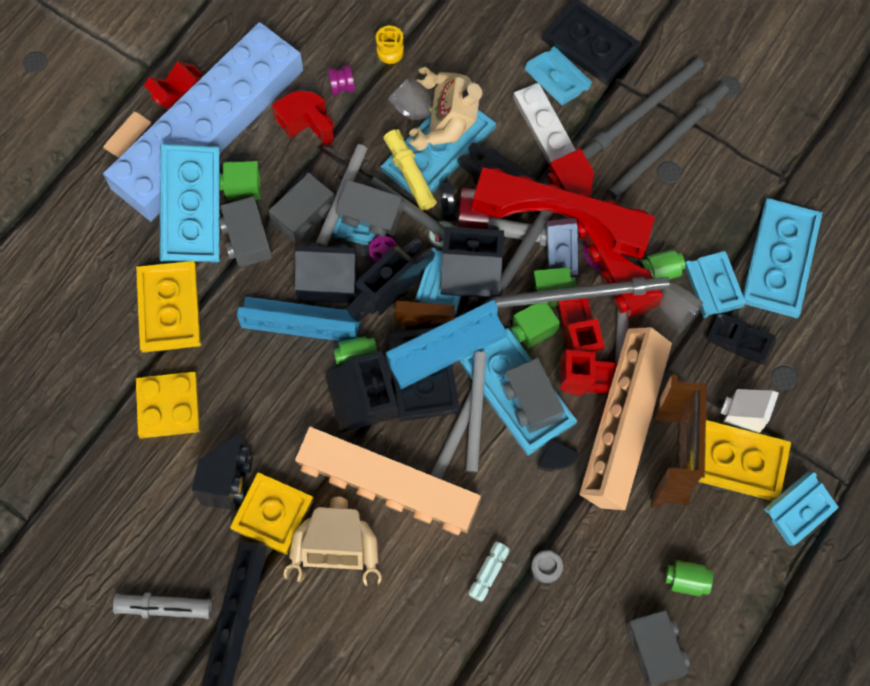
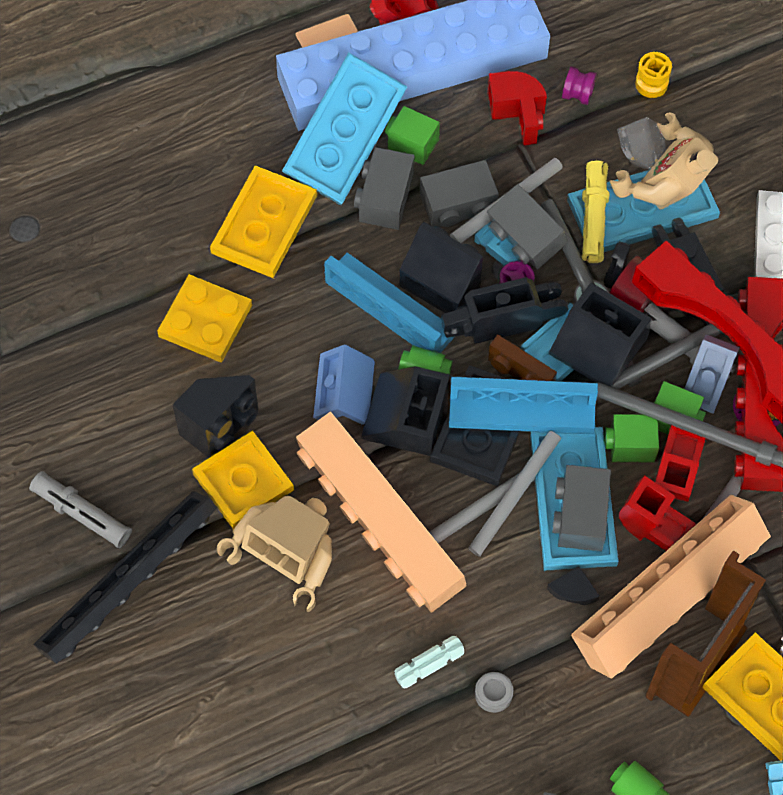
camera: 30 degrees right, 5 degrees down
(303, 399) = (344, 384): none -> medium blue panel

